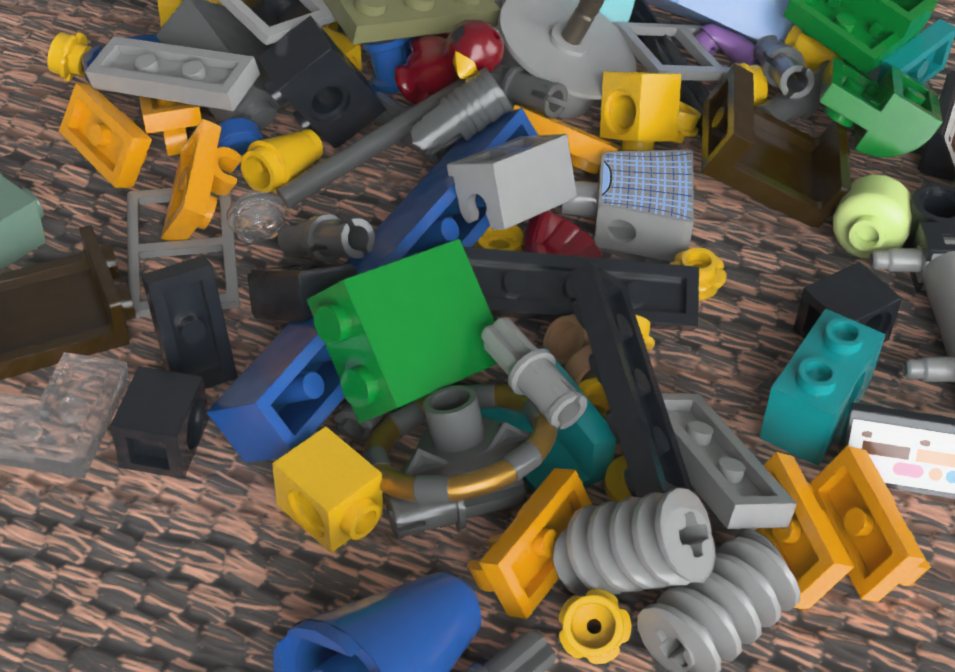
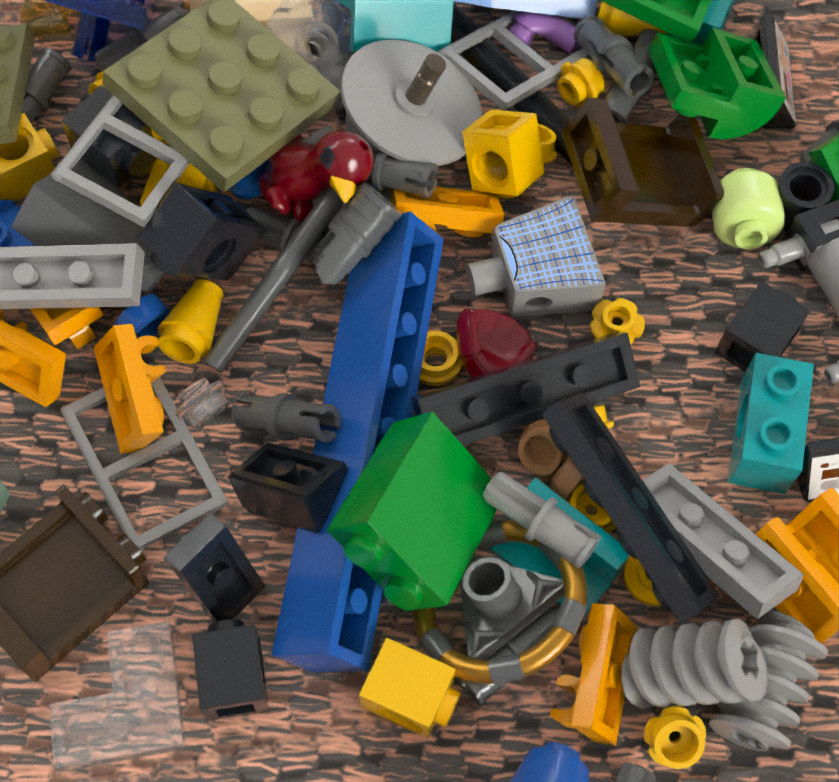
camera: 20 degrees left, 20 degrees up
(515, 179) = (436, 298): light grey hinge -> none

